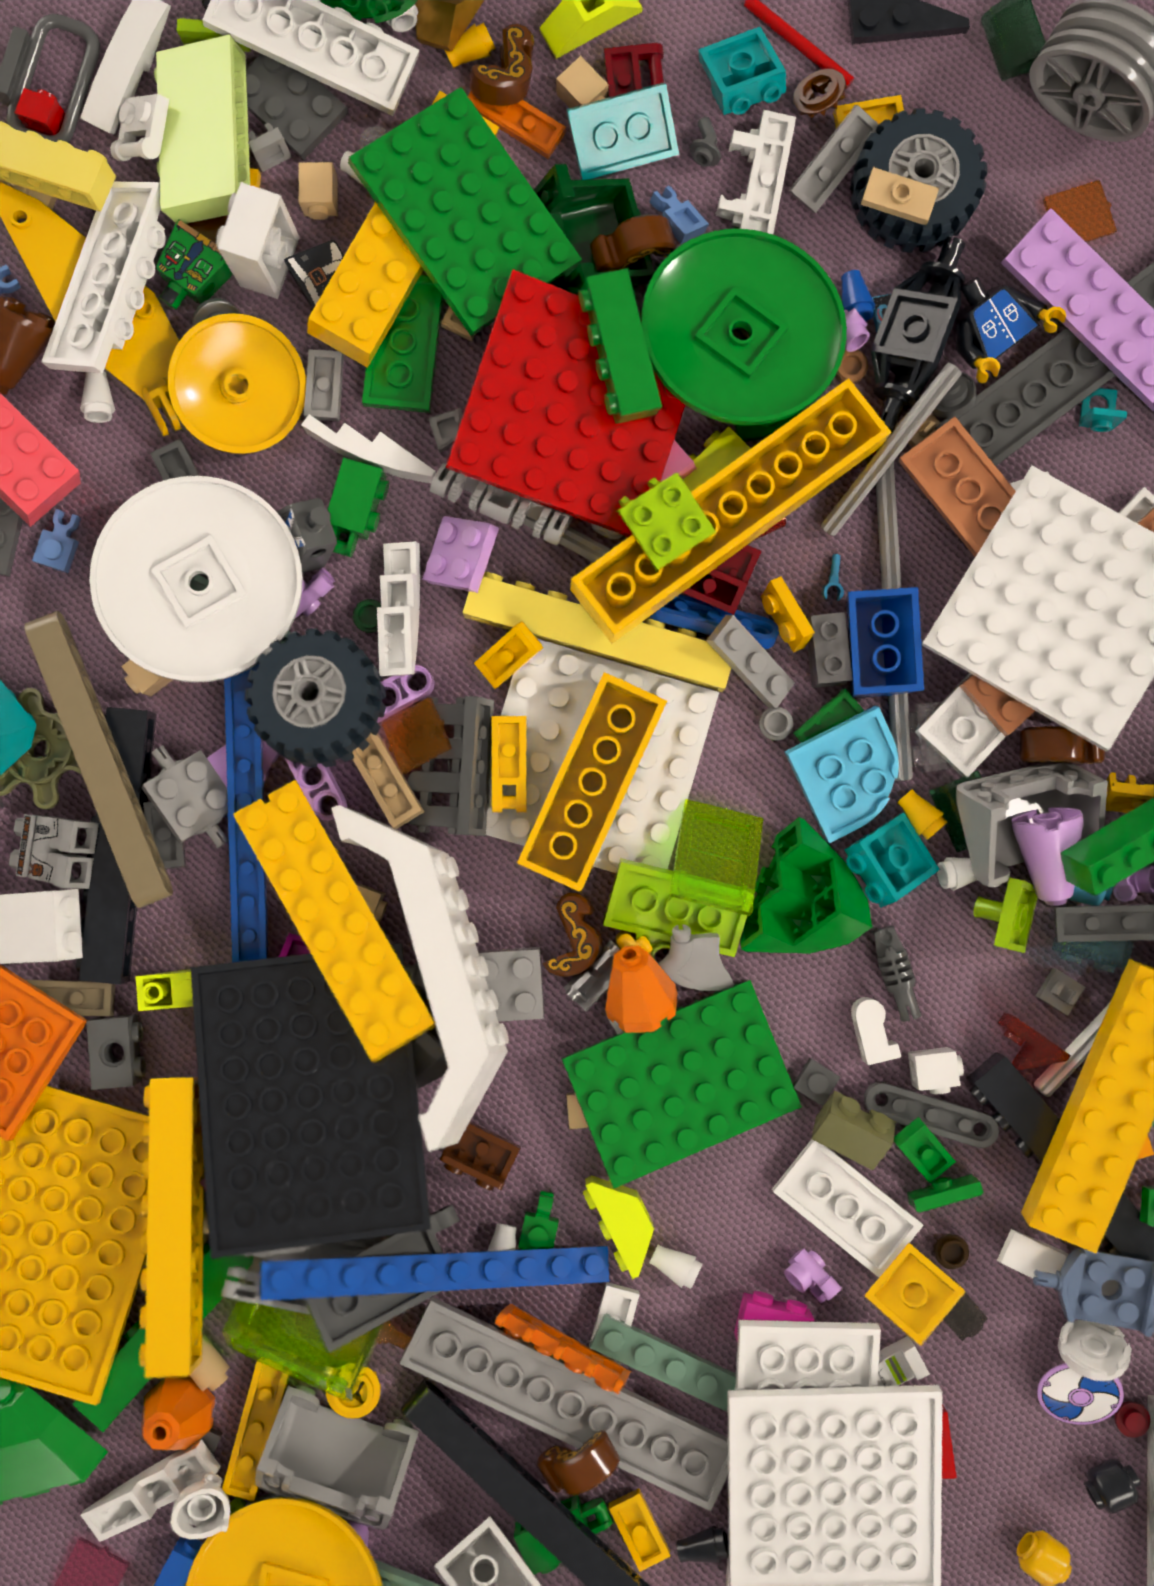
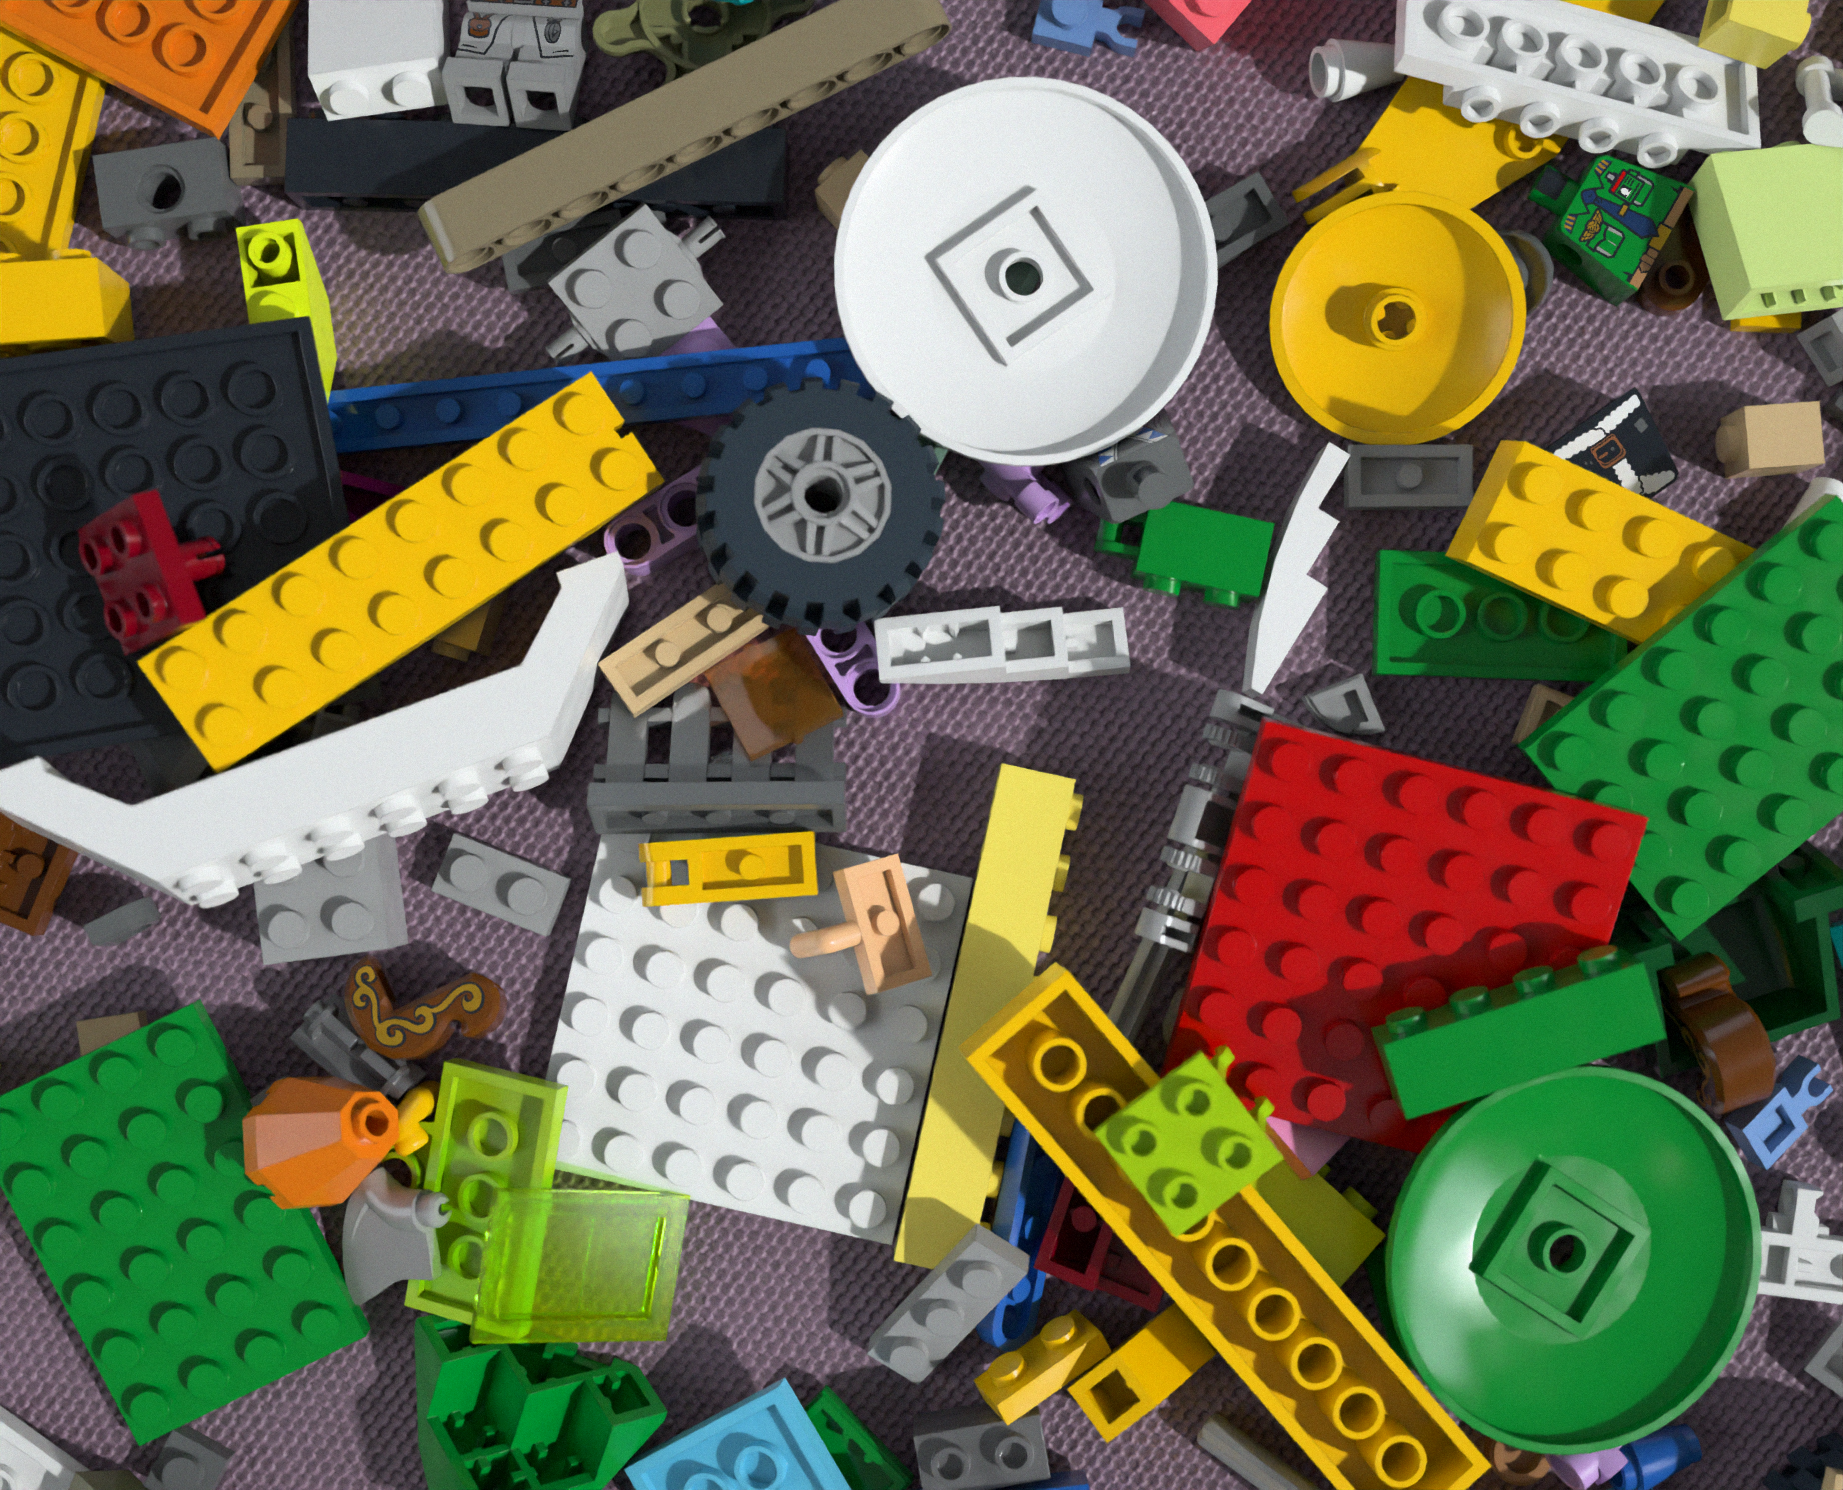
camera: 90 degrees right, 0 degrees up
(257, 239) = (1668, 336): white brick -> none
(323, 1055) = (146, 572): none -> dark red plate
(366, 615) = (989, 586): dark green plate -> none
(460, 553) = (1112, 752): lavender plate -> none
(508, 655) = (931, 853): yellow plate -> none
(509, 893) = (501, 884): none -> light grey plate
(516, 1098) = (123, 923): none -> dark grey tile
(544, 685) = (877, 925): none -> light nougat plate
(592, 782) = (697, 1027): yellow brick -> none
(776, 723) = (840, 1353): light grey plate -> none
(792, 560) = (1141, 1371): none -> yellow slope
(834, 578) = (1118, 1445): dark azure hand -> none

